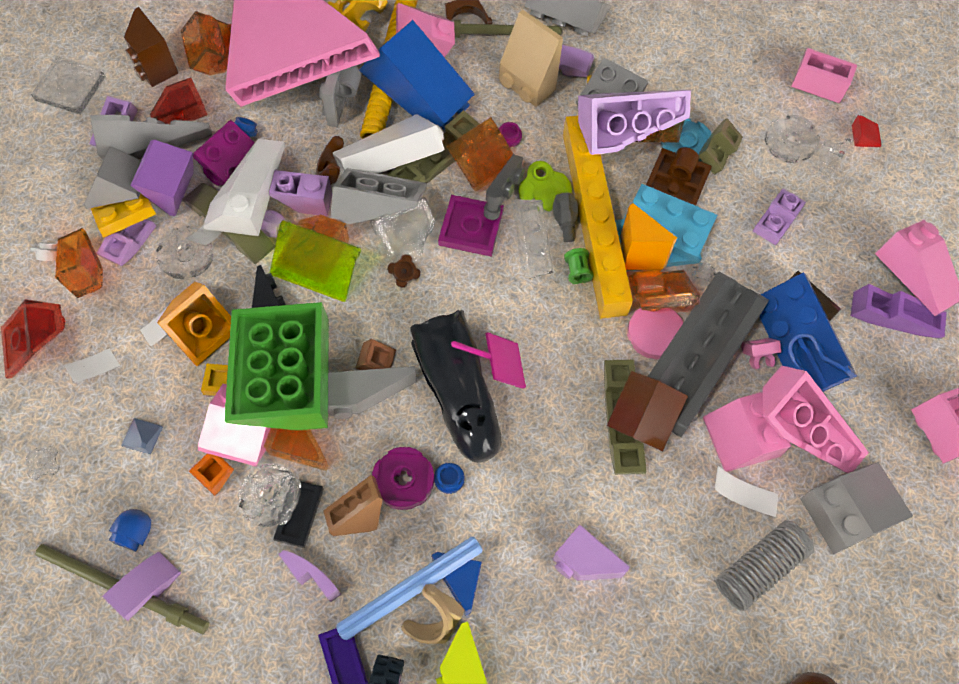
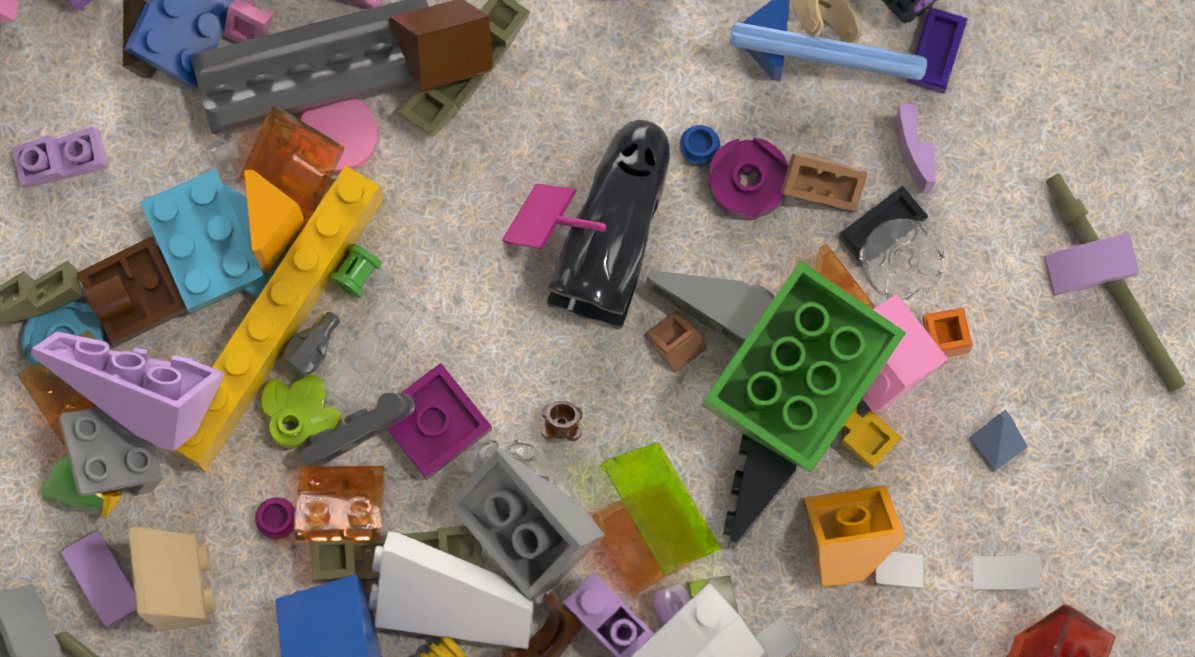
camera: 140 degrees left, 10 degrees up
(130, 529) = (1071, 337): blue piece -> none

